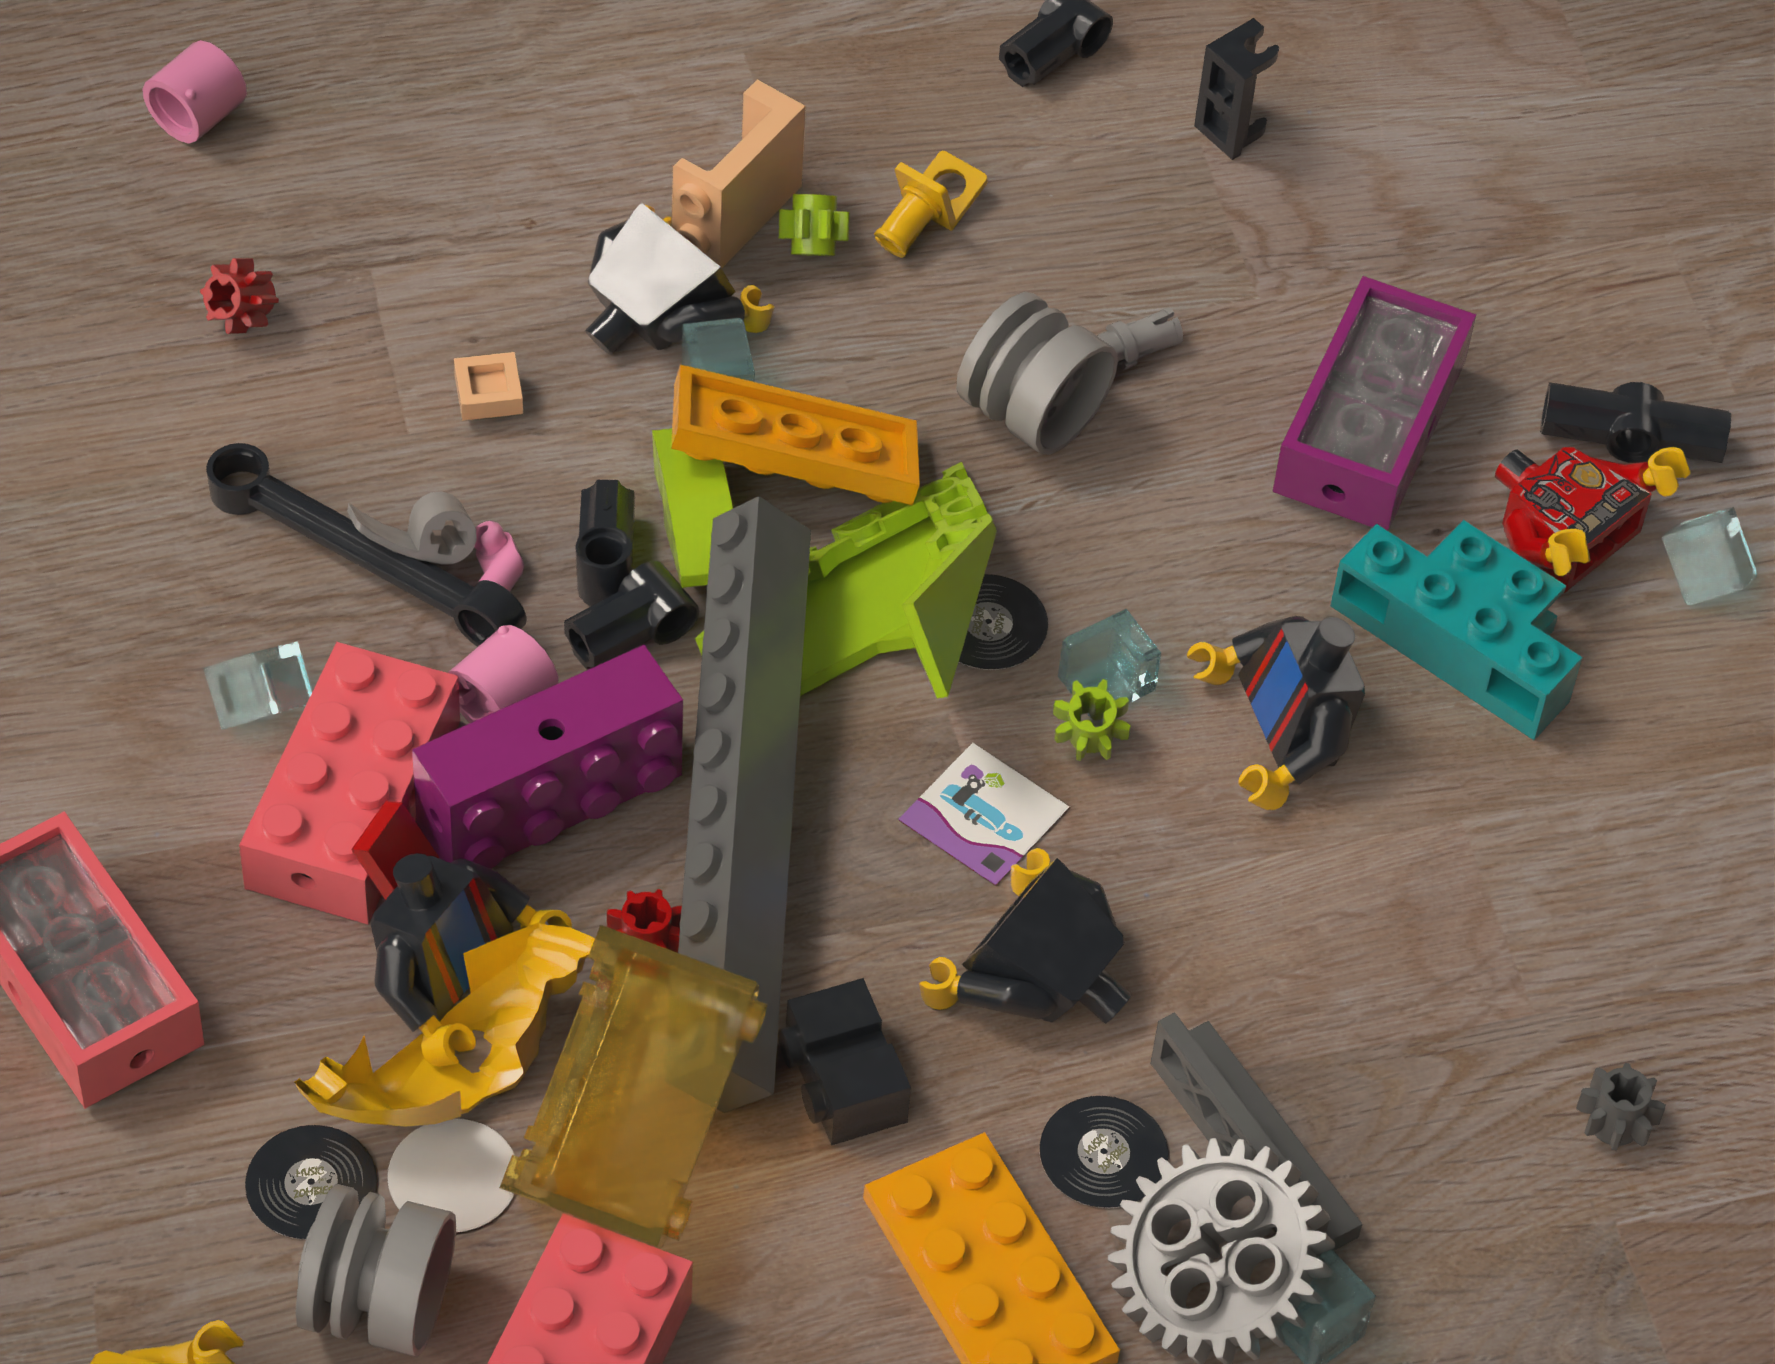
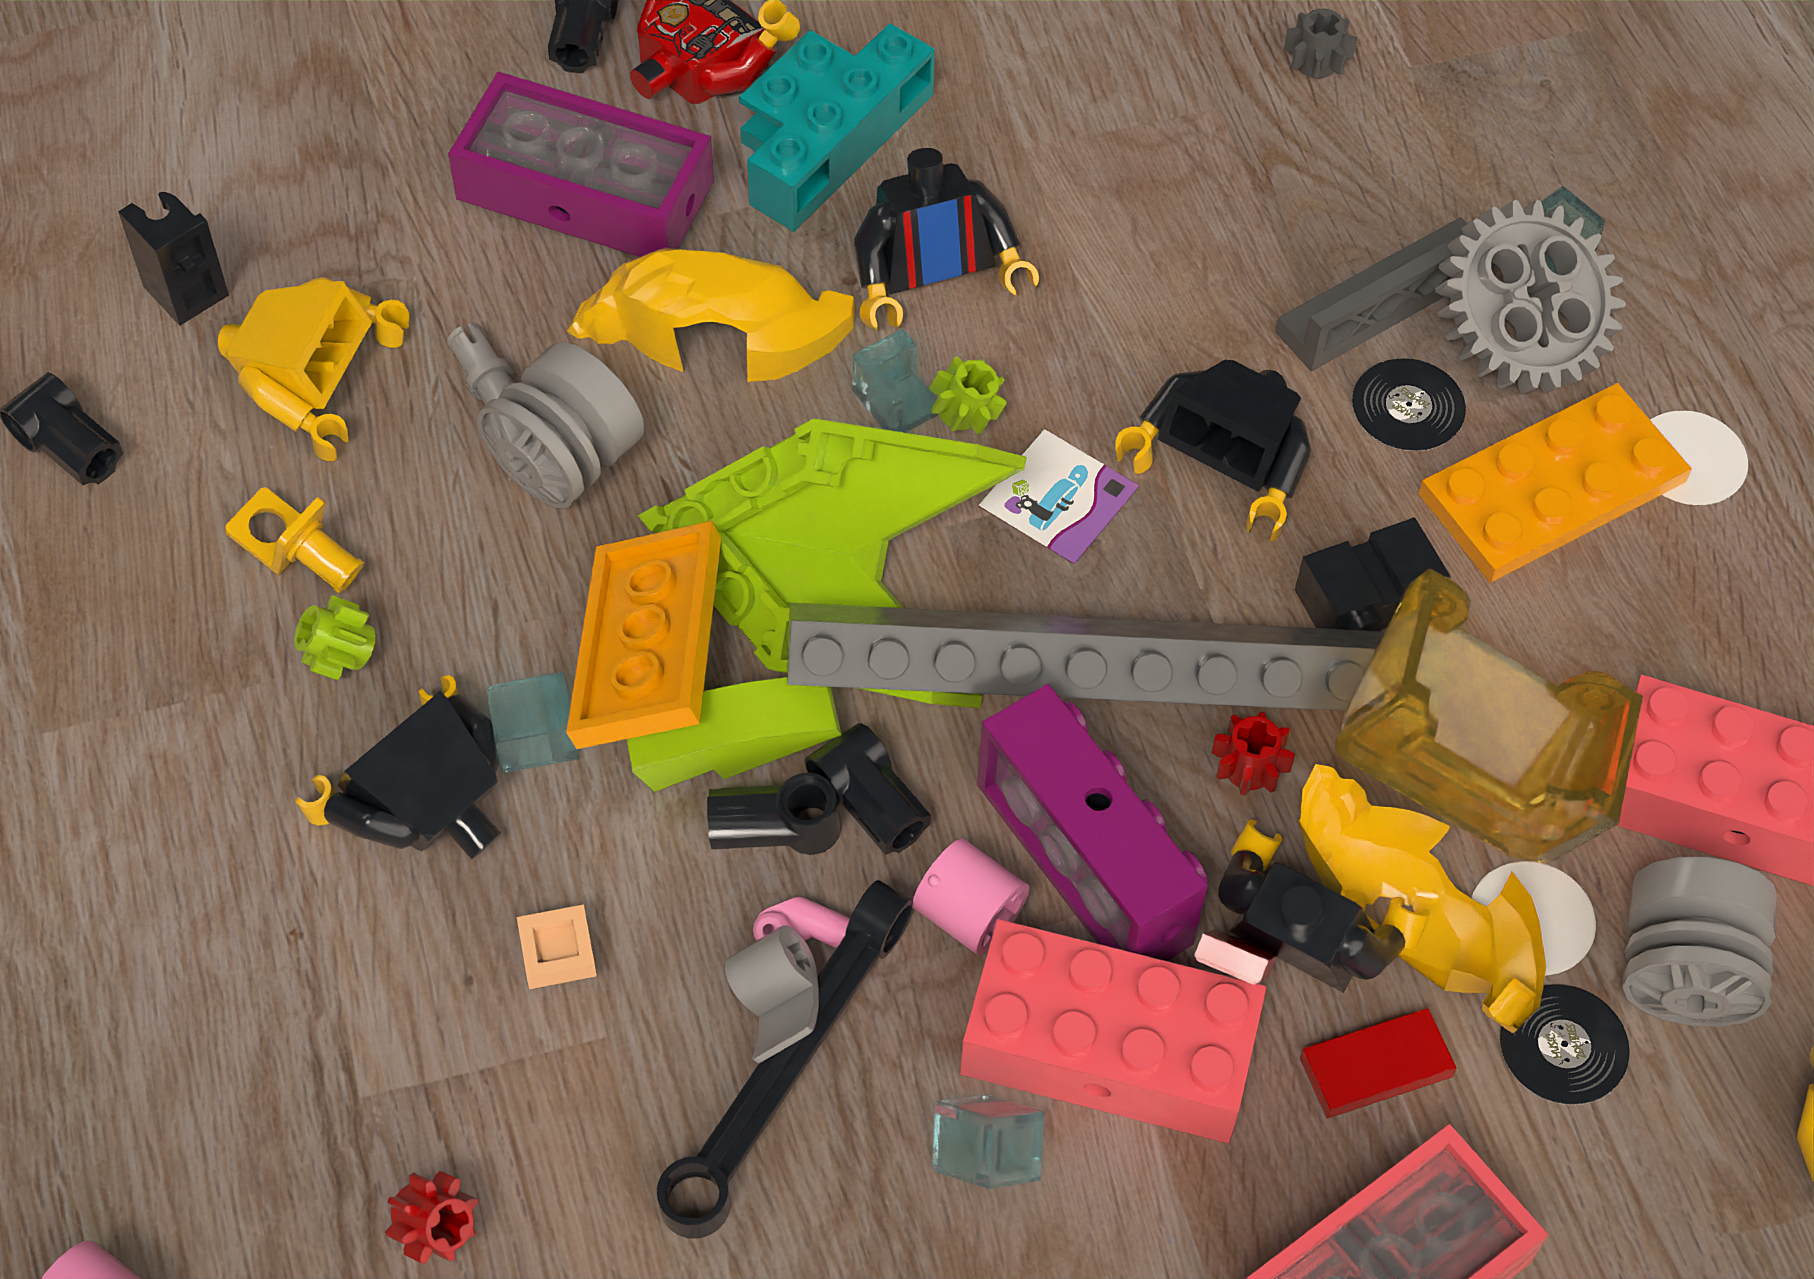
camera: 90 degrees left, 5 degrees up
(303, 1008) = (1377, 1063): none -> red tile
(750, 184) = (245, 662): light nougat panel -> none
(1141, 188) = (299, 347): none -> yellow torso
(1206, 511) = (696, 286): none -> yellow animal

